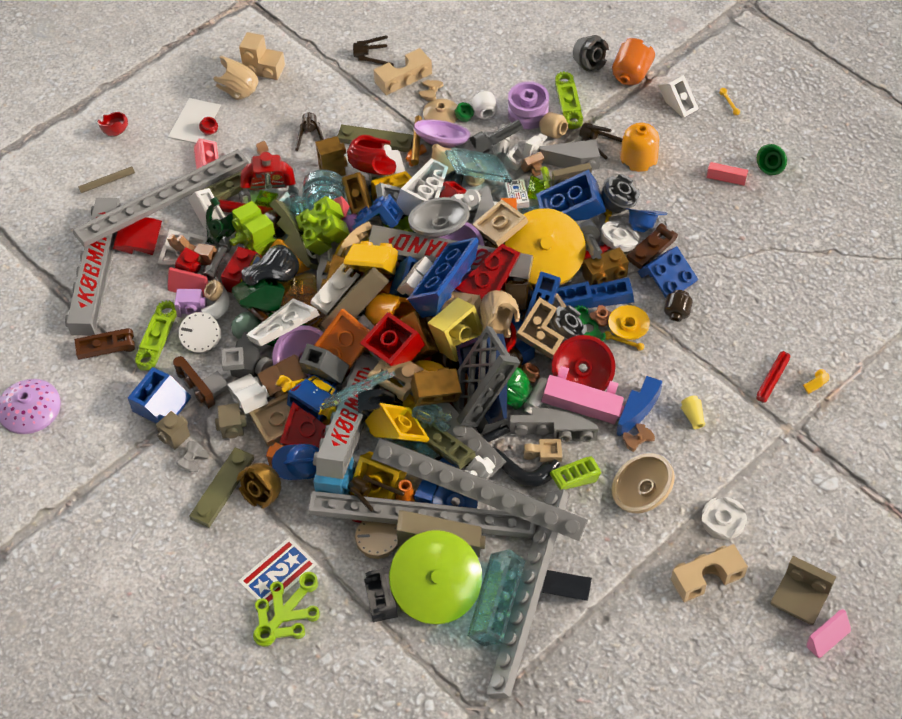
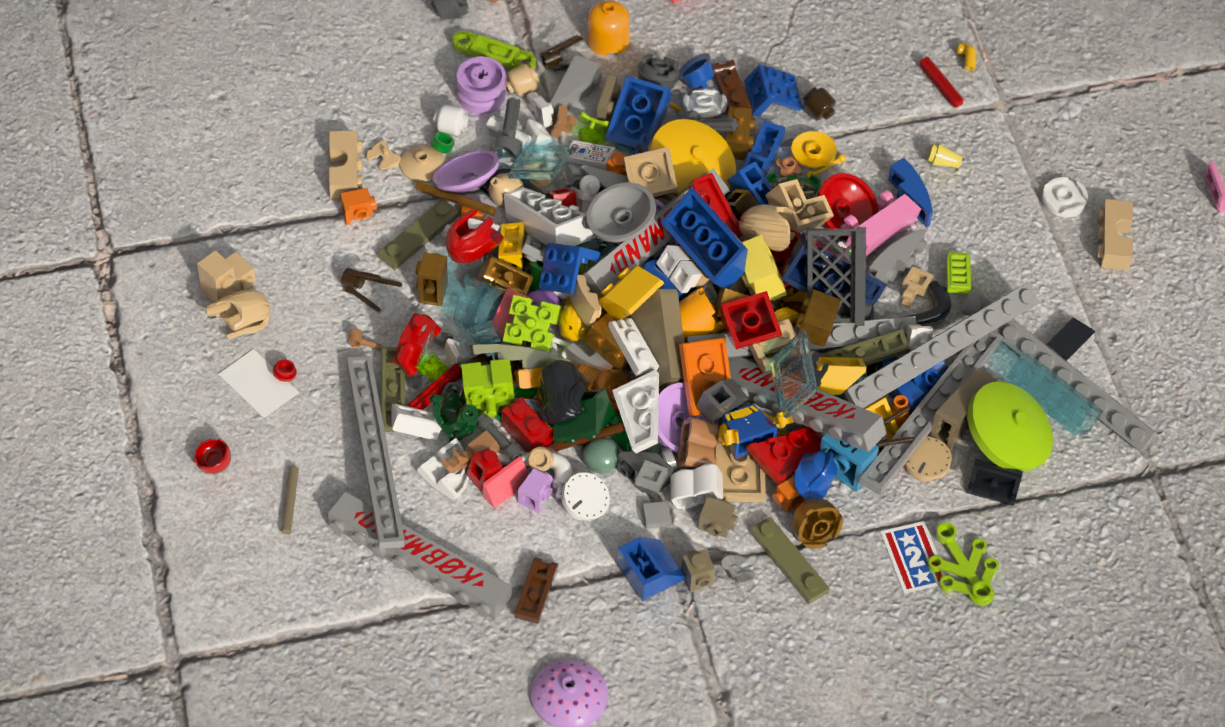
camera: 65 degrees left, 0 degrees up
(139, 236) = (411, 498): red slope -> none
(156, 335) = (557, 538): lime plate -> none
(193, 381) = (645, 527): reddish brown plate -> none
(205, 152) = (326, 395): coral slope -> none
(362, 48) = (279, 184): dark brown plant -> none
(372, 93) = (357, 205): none -> orange brick
(432, 413) = (840, 342): clear light blue plate -> none
(643, 483) = (993, 218): tan dish -> none
(644, 434) = (944, 217): medium nougat piece -> none
(803, 590) = (1170, 180): dark tan bracket -> none

